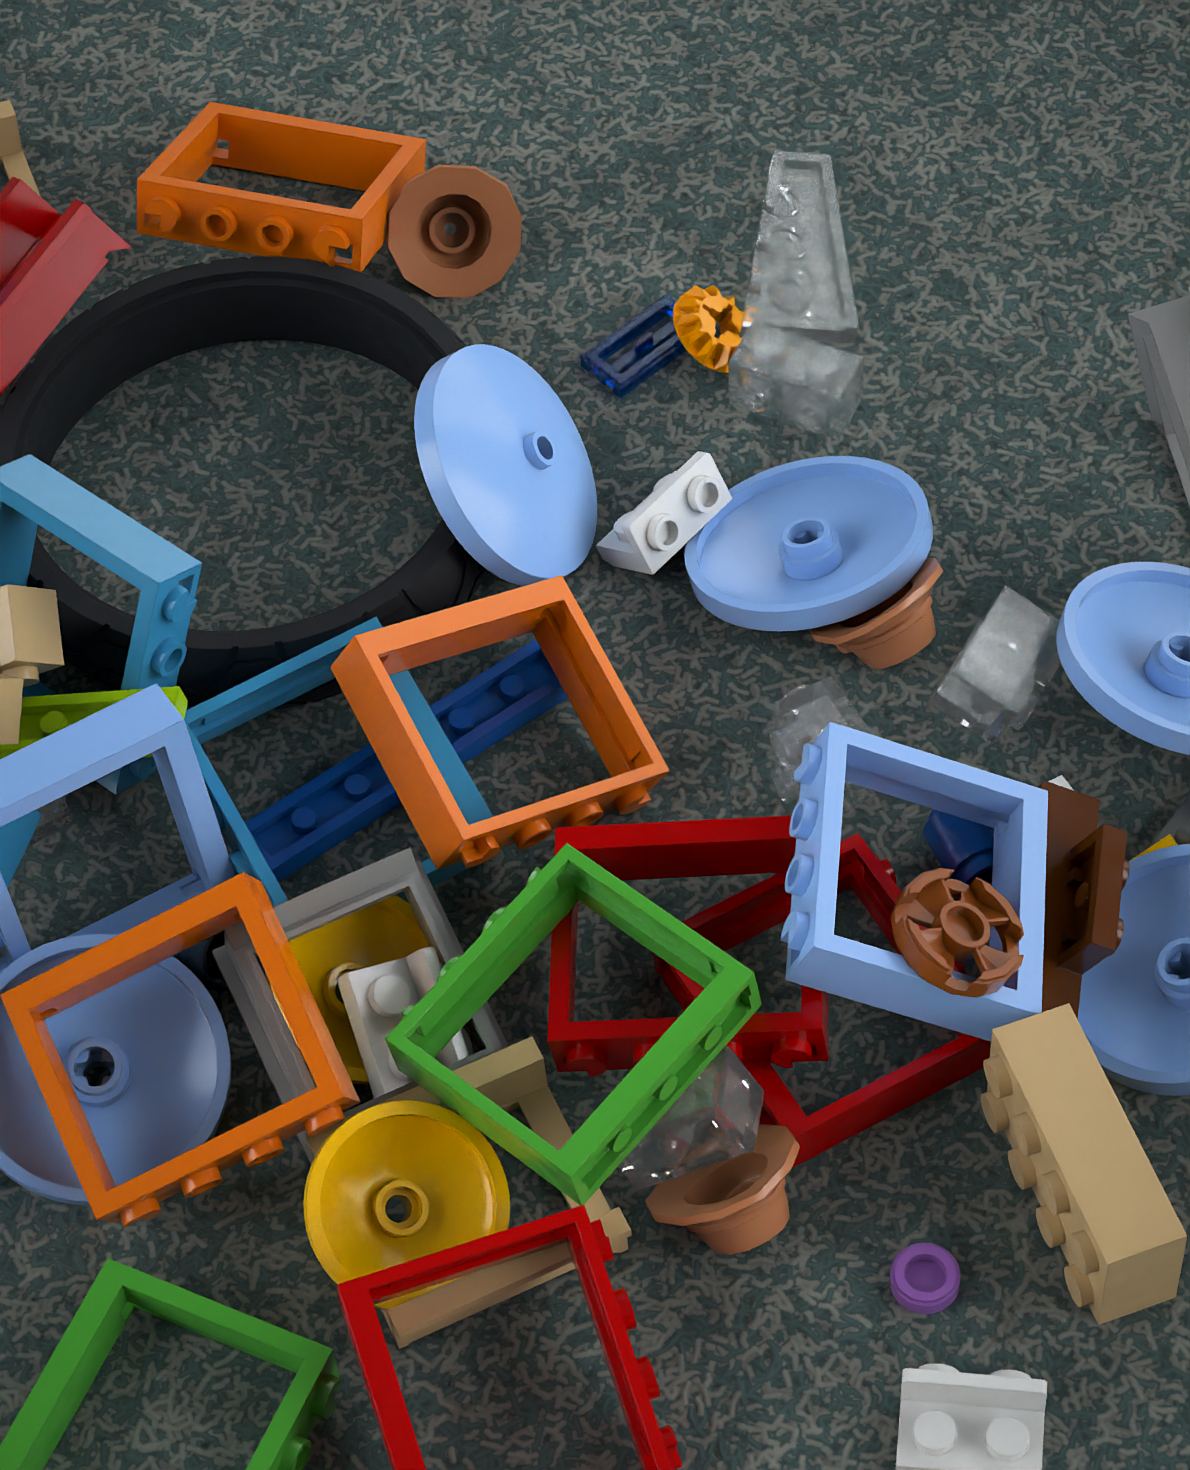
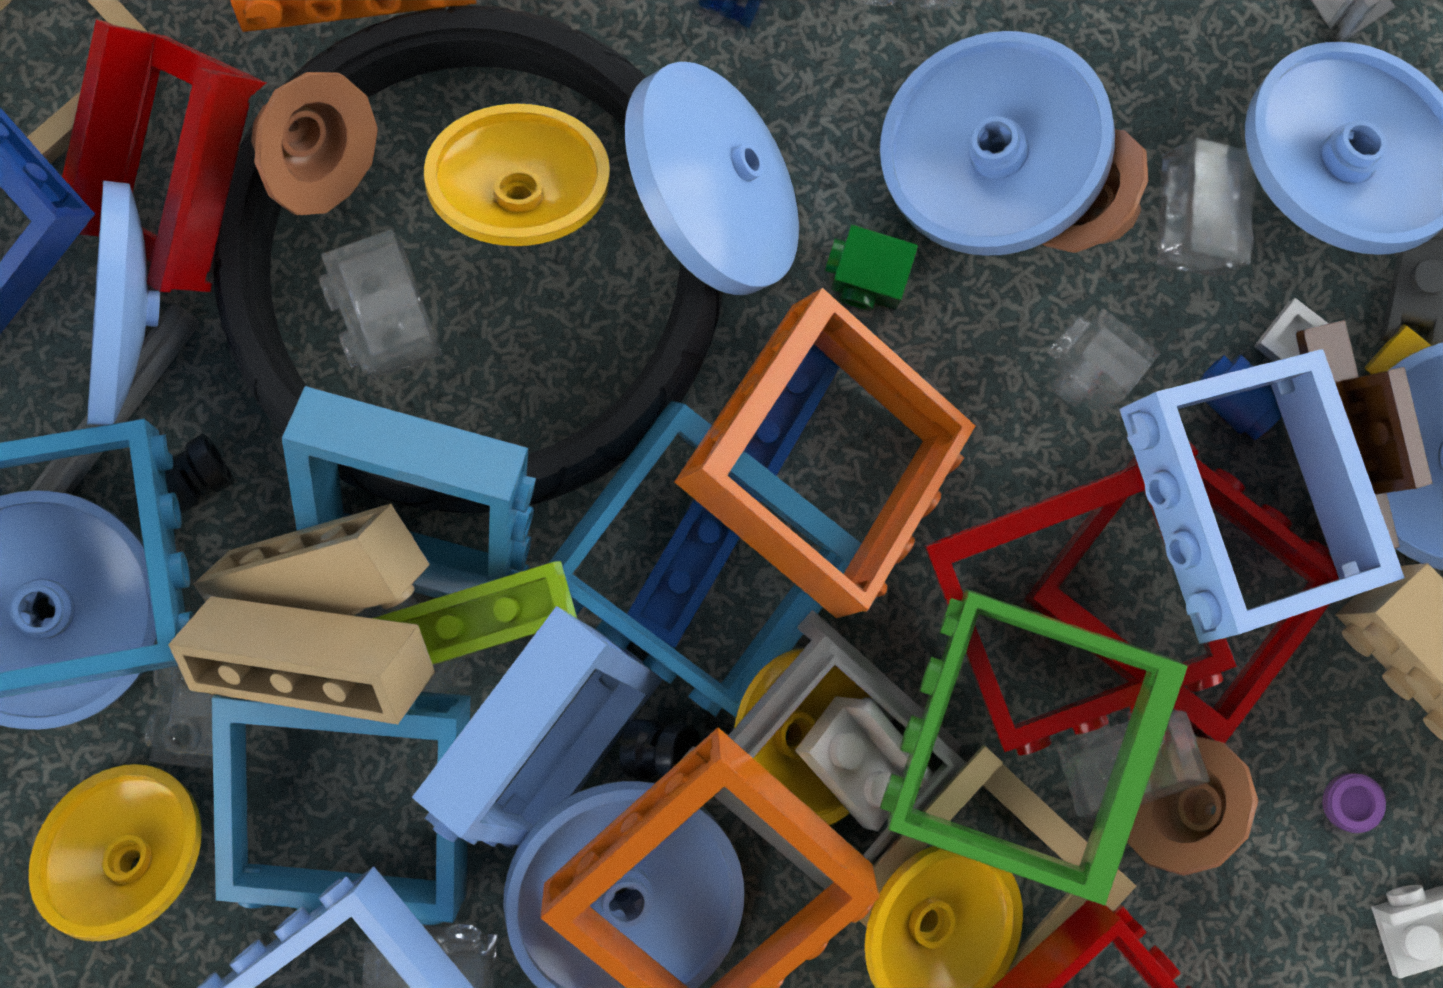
camera: 30 degrees left, 30 degrees up
(137, 449) = (379, 305): none -> clear brick
(167, 321) = (324, 149): none -> nougat hat
(316, 388) = (516, 174): none -> yellow dish
(637, 615) = (870, 268): none -> green brick
(667, 517) = (854, 156): white bracket -> none
(956, 932) = (1327, 545): dark orange piece -> none

